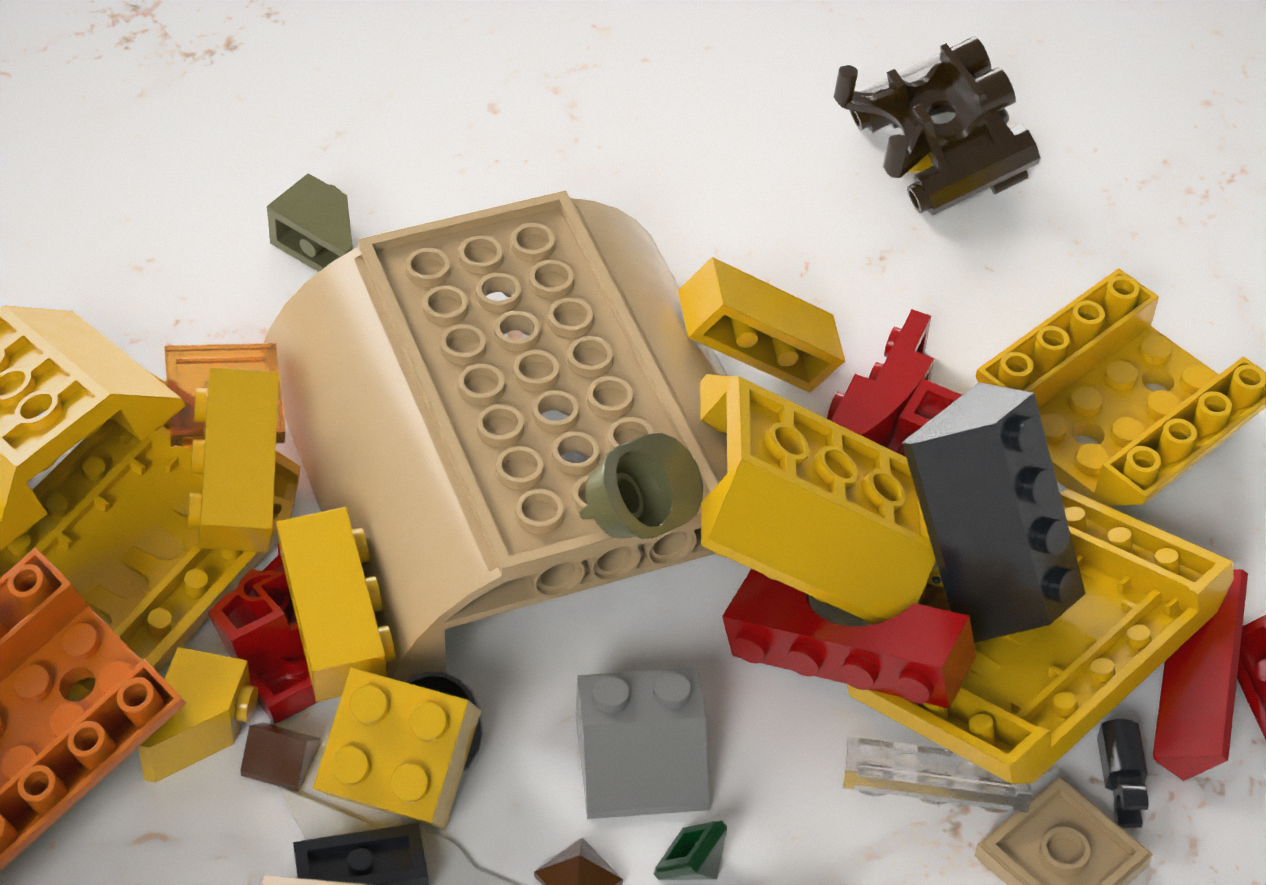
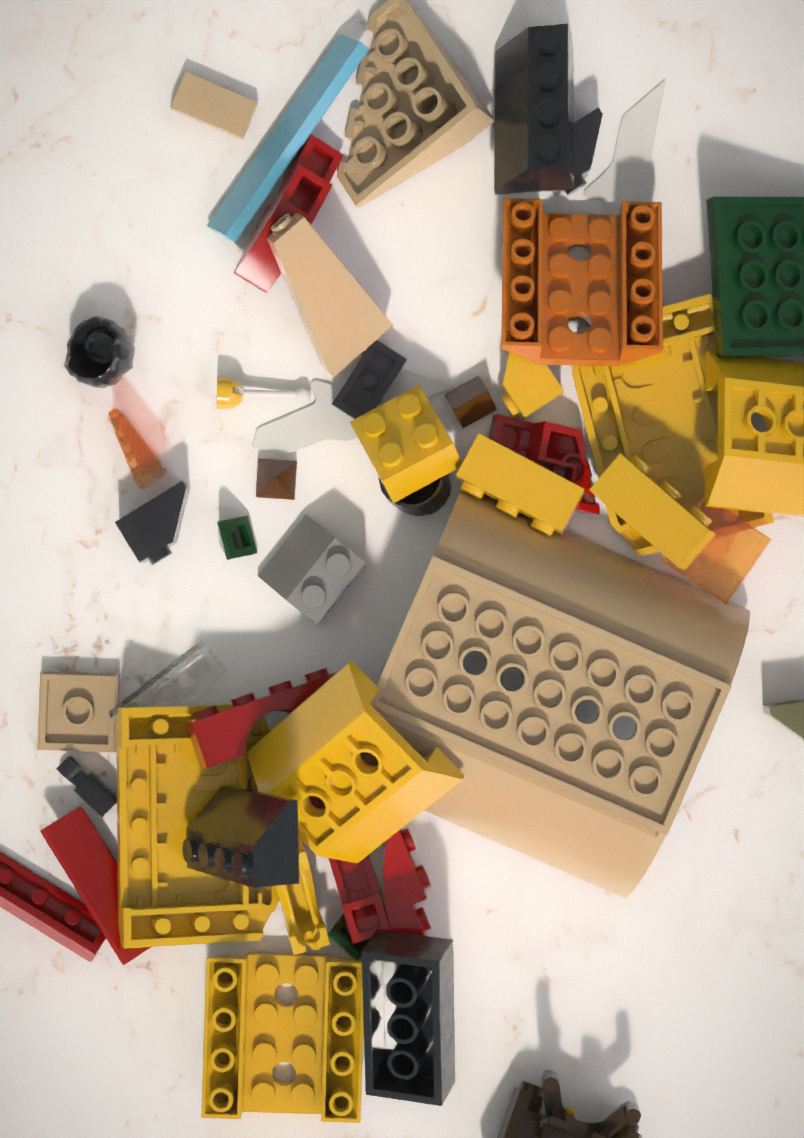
camera: 140 degrees right, 40 degrees up
(644, 488) = (401, 656): olive piece -> none
(760, 325) = (501, 877): yellow brick -> none
(975, 292) = (408, 1017): none -> black brick

